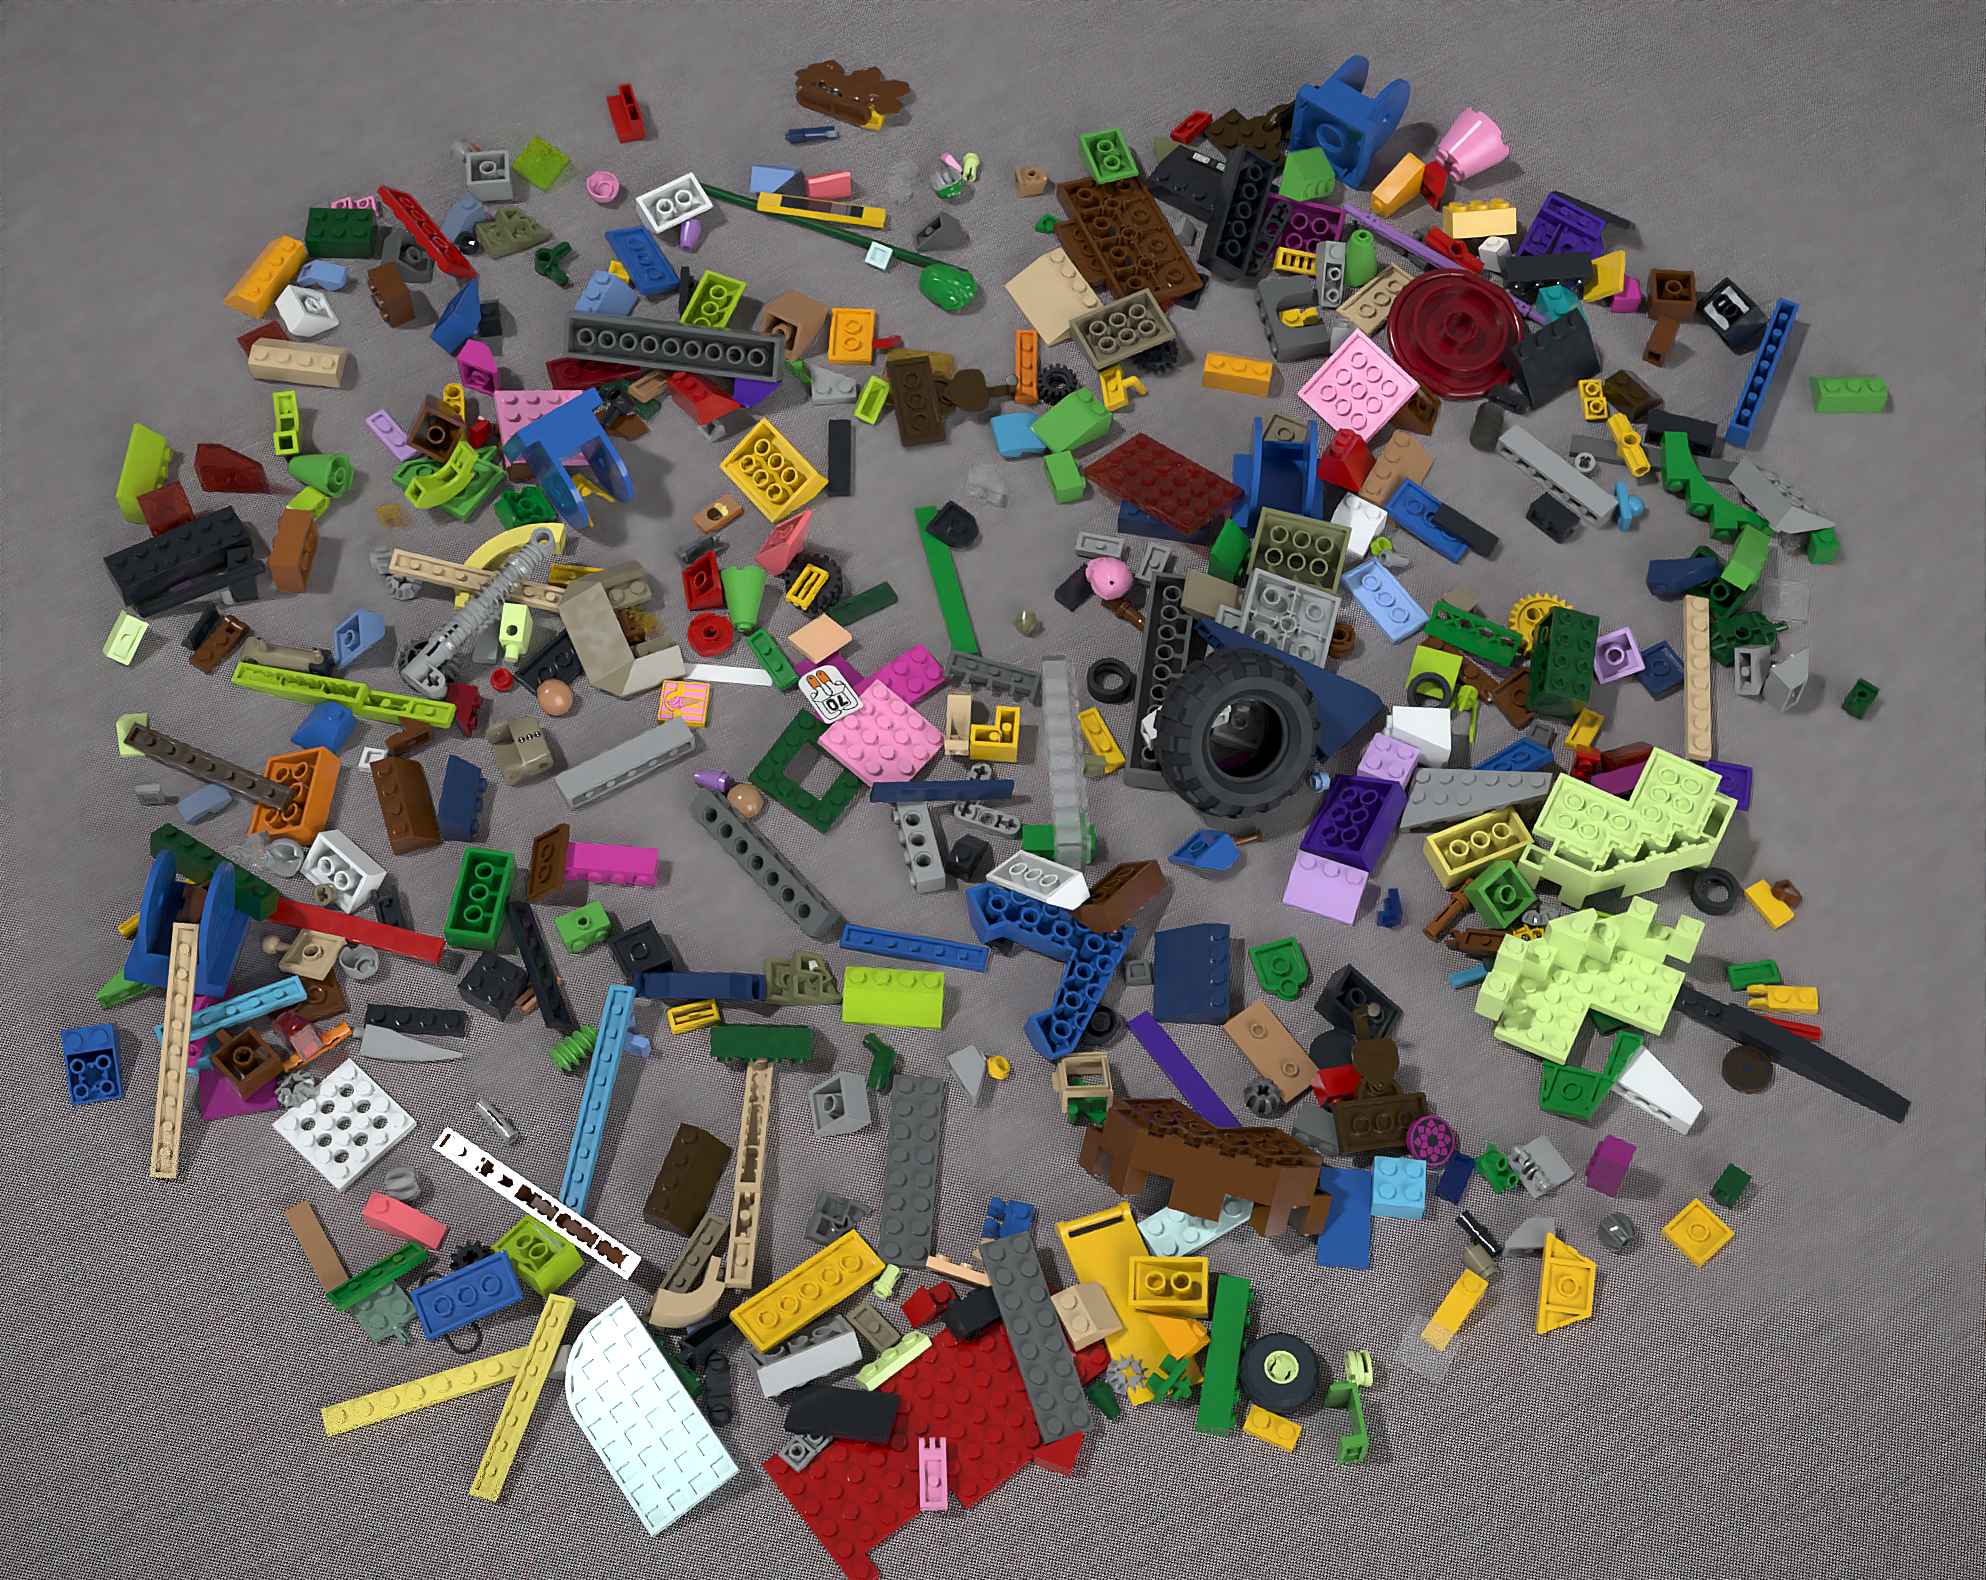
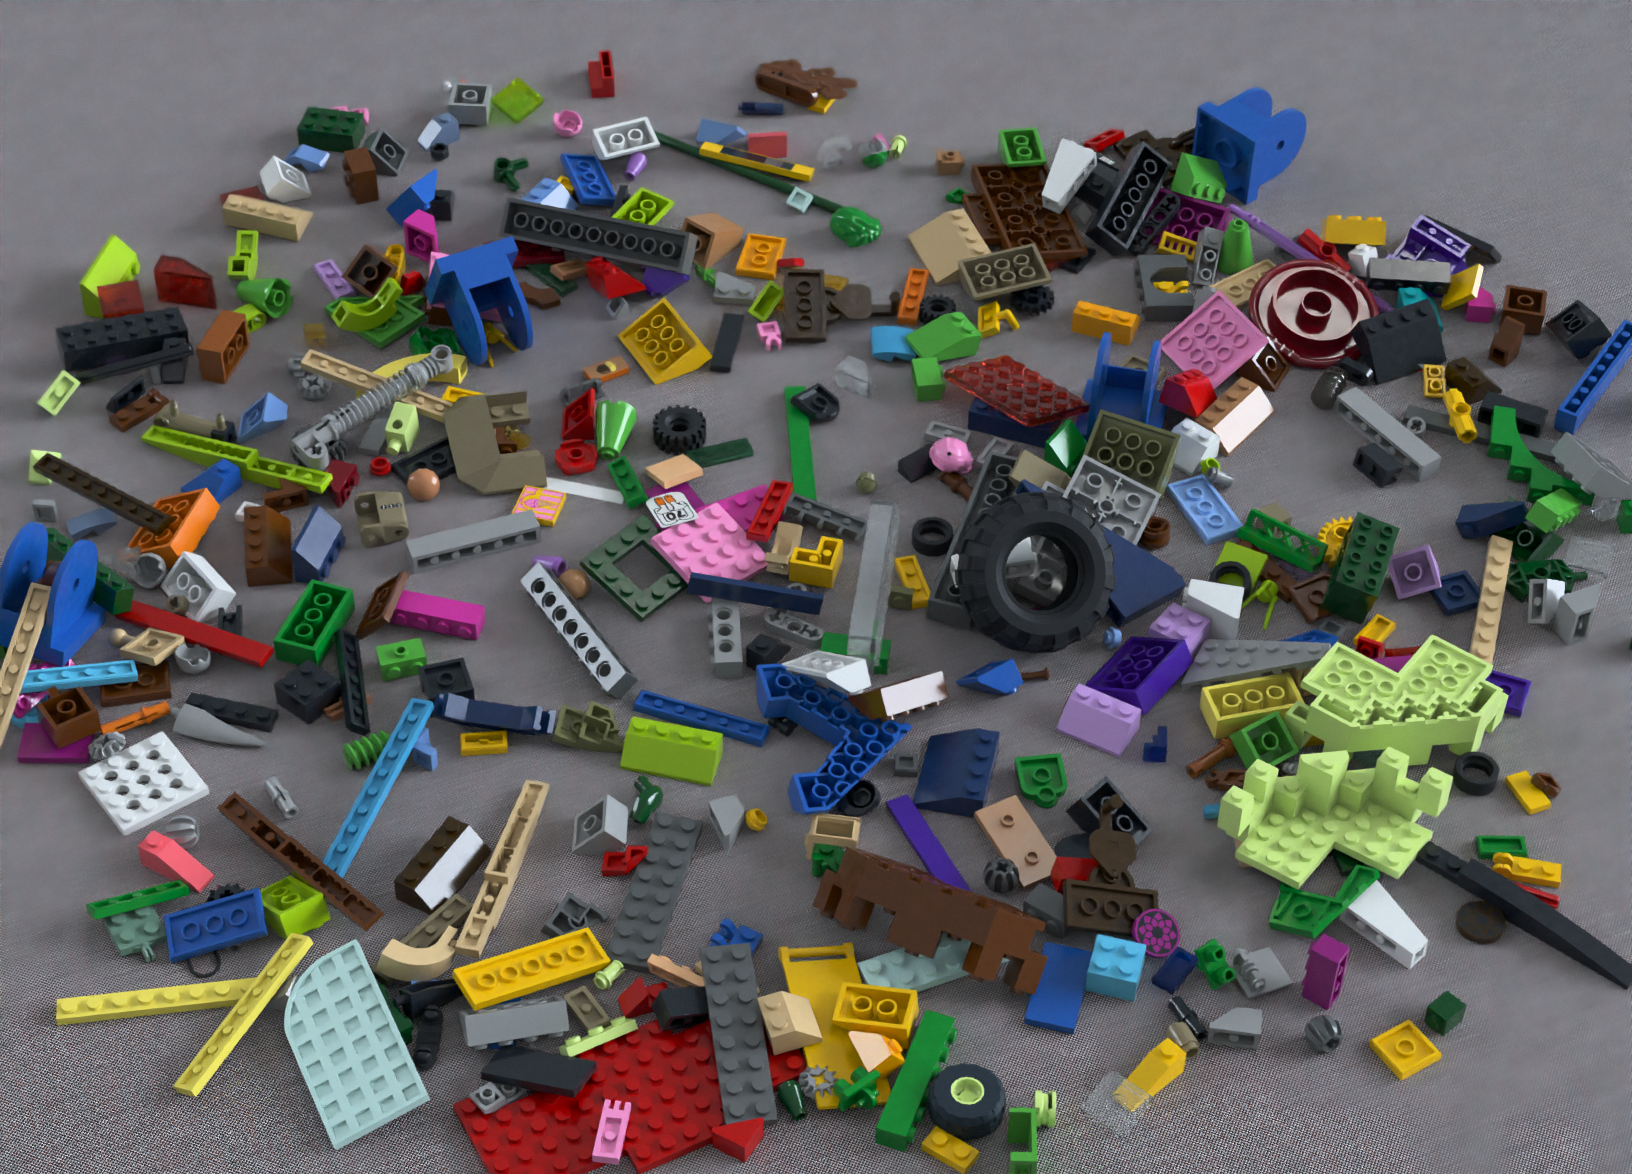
camera: 10 degrees right, 15 degrees down
(267, 276) = (249, 161): light orange slope -> none
(297, 1035) = (120, 702): clear red brick -> none
(316, 1246) = (89, 869): medium nougat tile -> none
(426, 232) = (403, 136): red plate -> none
(510, 232) = (479, 147): olive slope -> none
(618, 403) = (536, 275): black axle -> none
(762, 1041) = (540, 765): dark green slope -> none
(784, 544) = (661, 393): coral slope -> none
(790, 597) = (674, 428): yellow tile -> none
(871, 1142) = (622, 862): none -> red slope
(884, 440) = (769, 333): none -> bright pink plate
(934, 679) = (769, 511): none -> red tile
(938, 233) = (857, 189): dark grey slope -> none
(1166, 187) = (1067, 174): none -> white slope
(1398, 187) = (1284, 201): light orange slope -> none
(1414, 510) = (1261, 451): blue tile -> none
(1433, 184) = (1315, 203): red slope -> none
(1465, 530) = (1291, 462): black tile -> none
(1470, 146) = (1356, 177): bright pink cone -> none
(1564, 1286) = (1262, 1070): yellow wing -> none
(1627, 507) = (1450, 464): dark azure tile -> none

